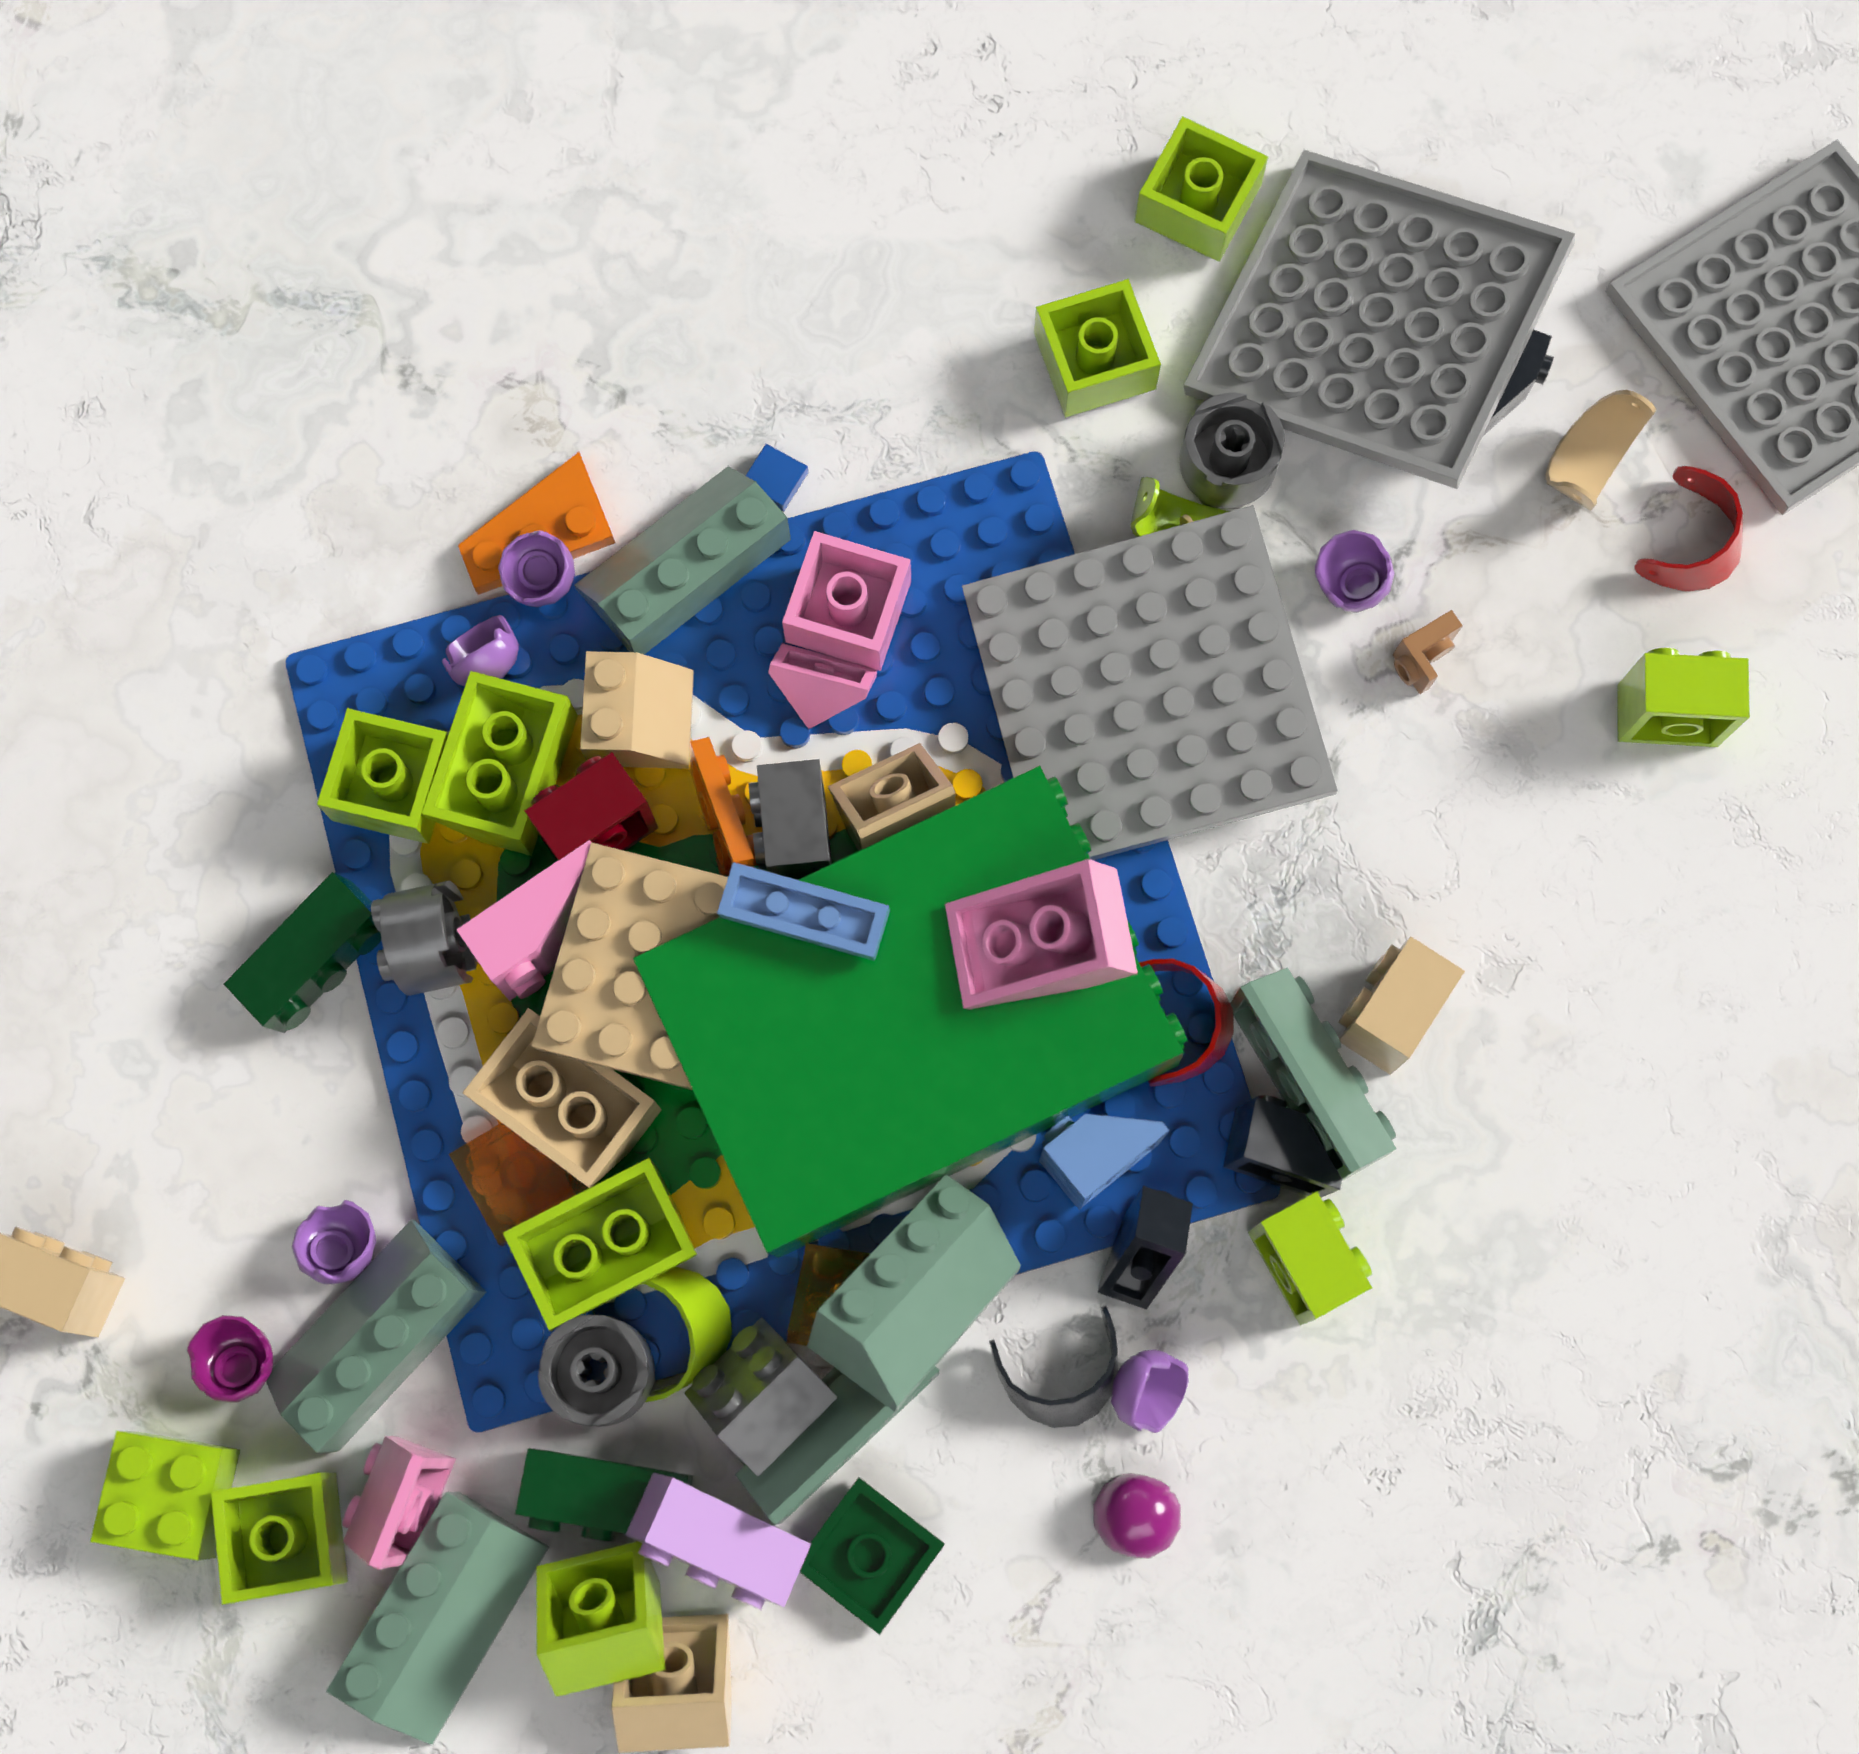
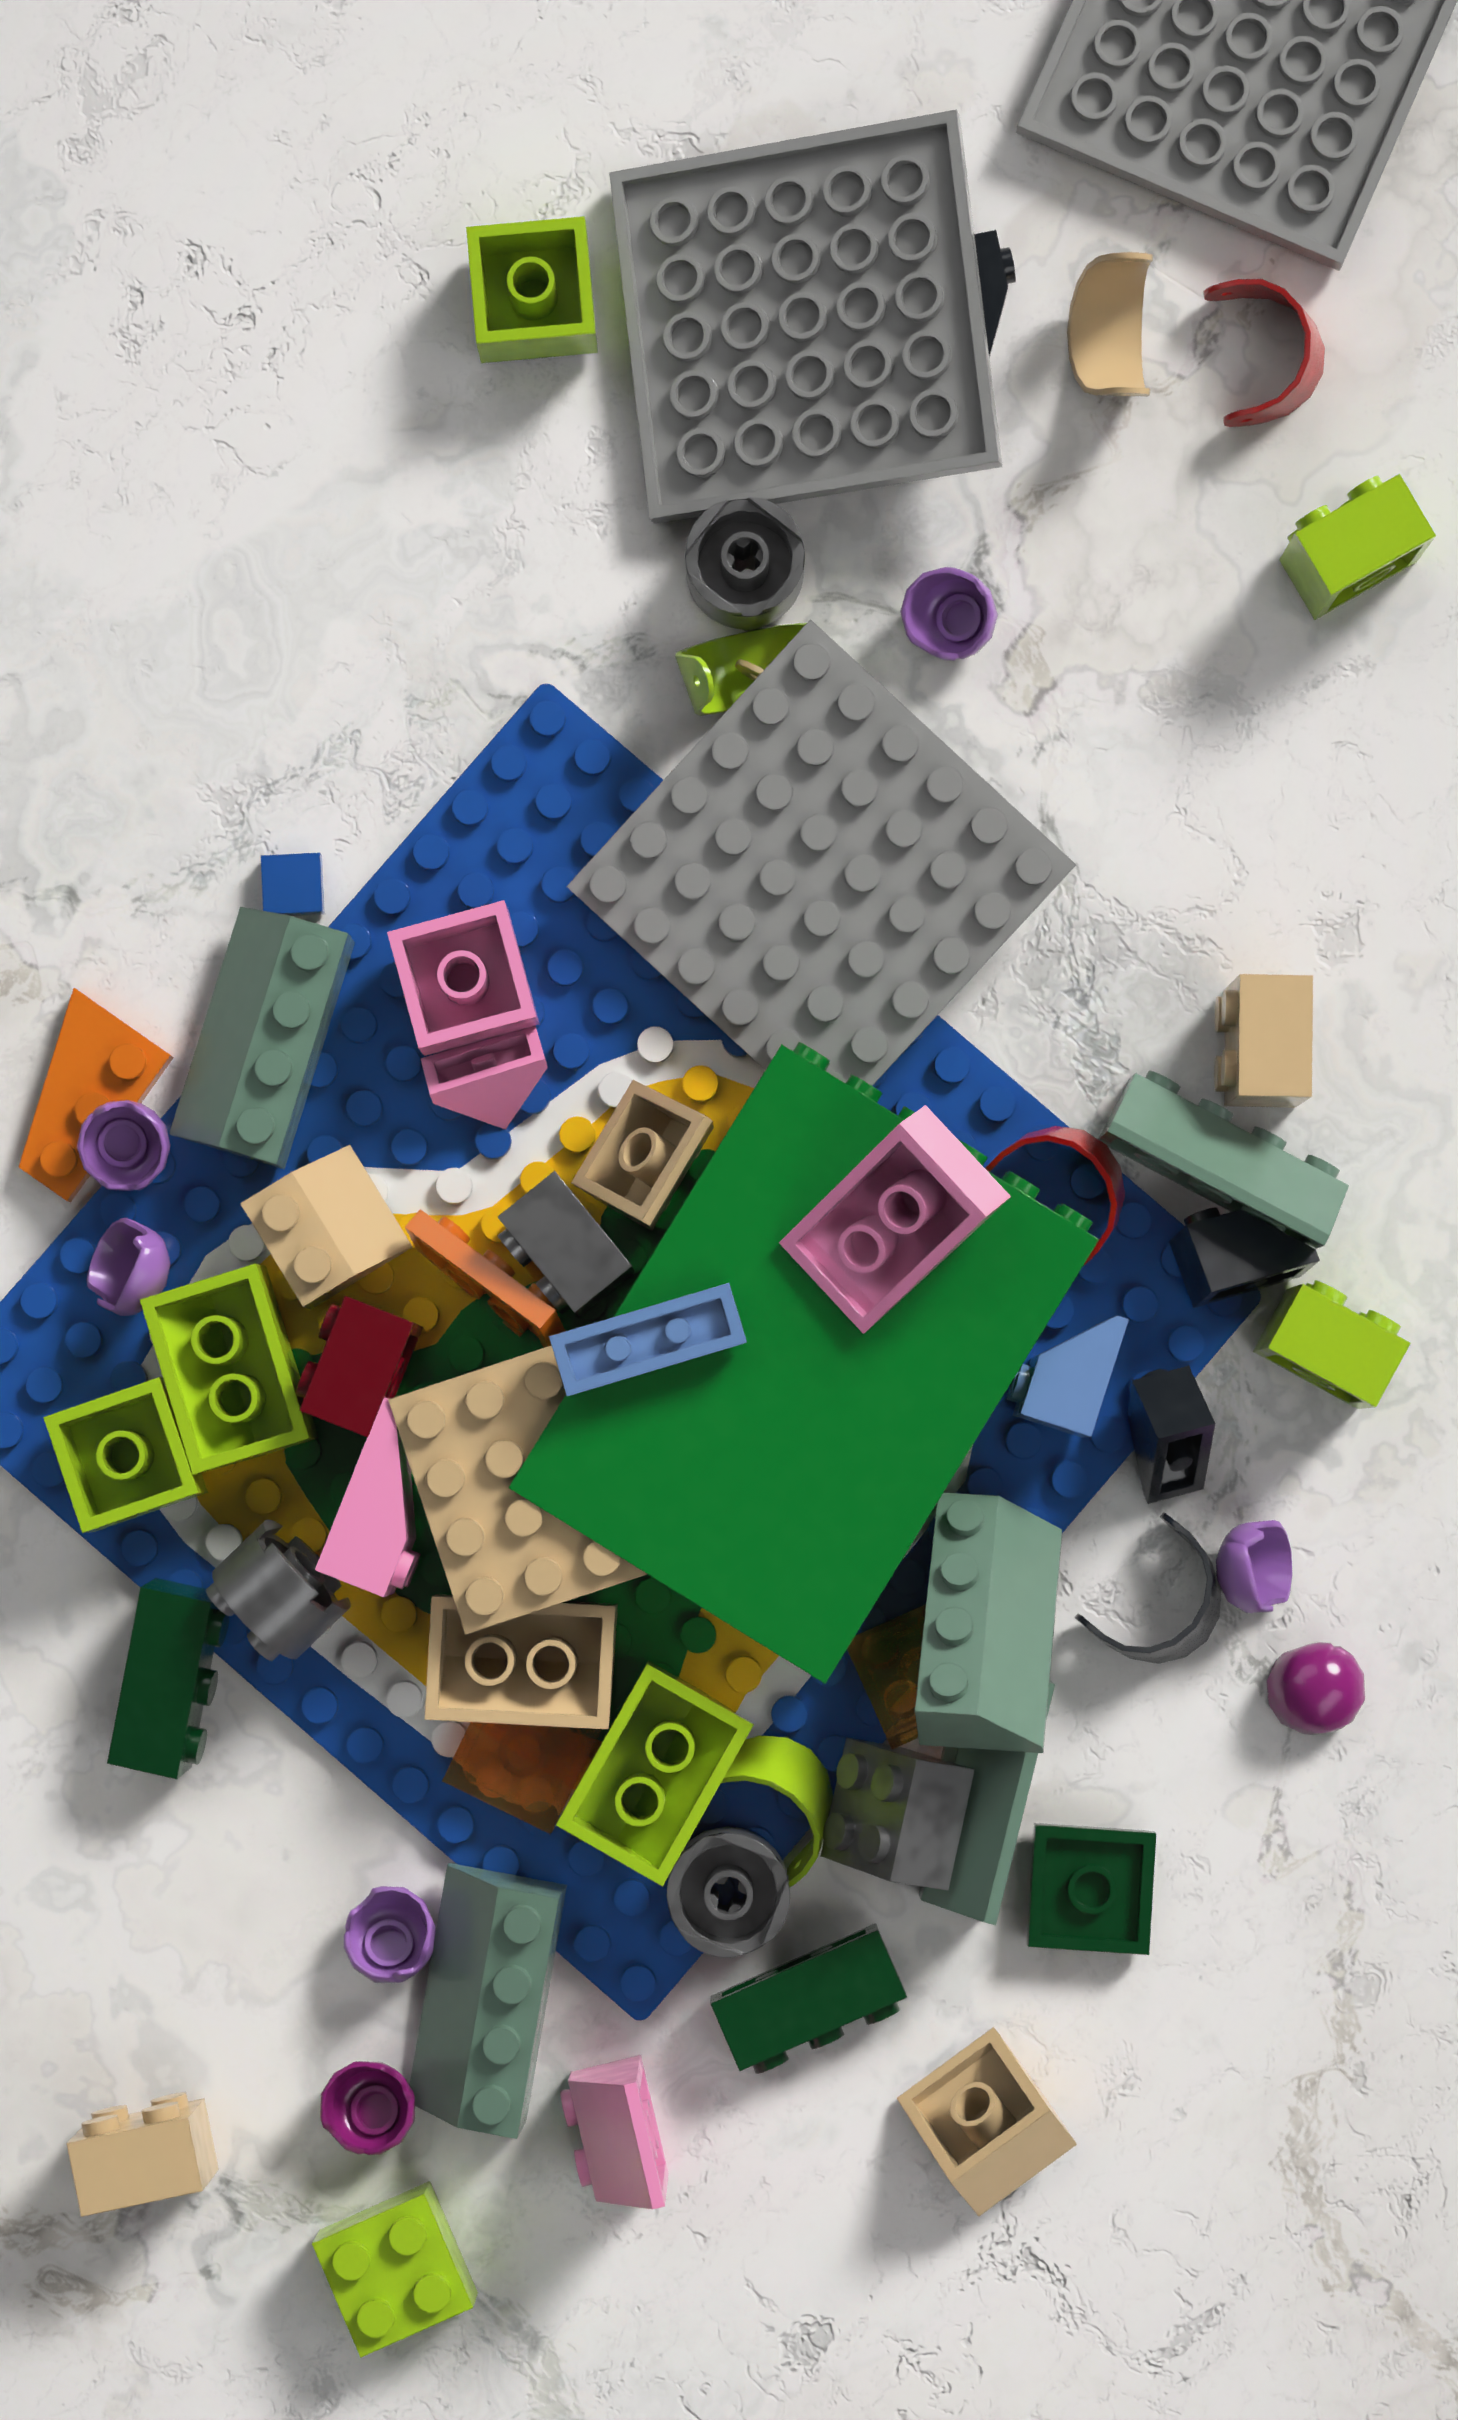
camera: 30 degrees left, 10 degrees up
(279, 1537) = (532, 2236): lime brick -> none
(438, 1618) = (729, 2207): sand green slope -> none
(598, 1619) = (883, 2111): lime brick -> none
(716, 1542) = (946, 1973): lavender brick -> none
(1096, 348) = (536, 538): lime brick -> none
(1428, 643) = (1070, 639): medium nougat bracket -> none

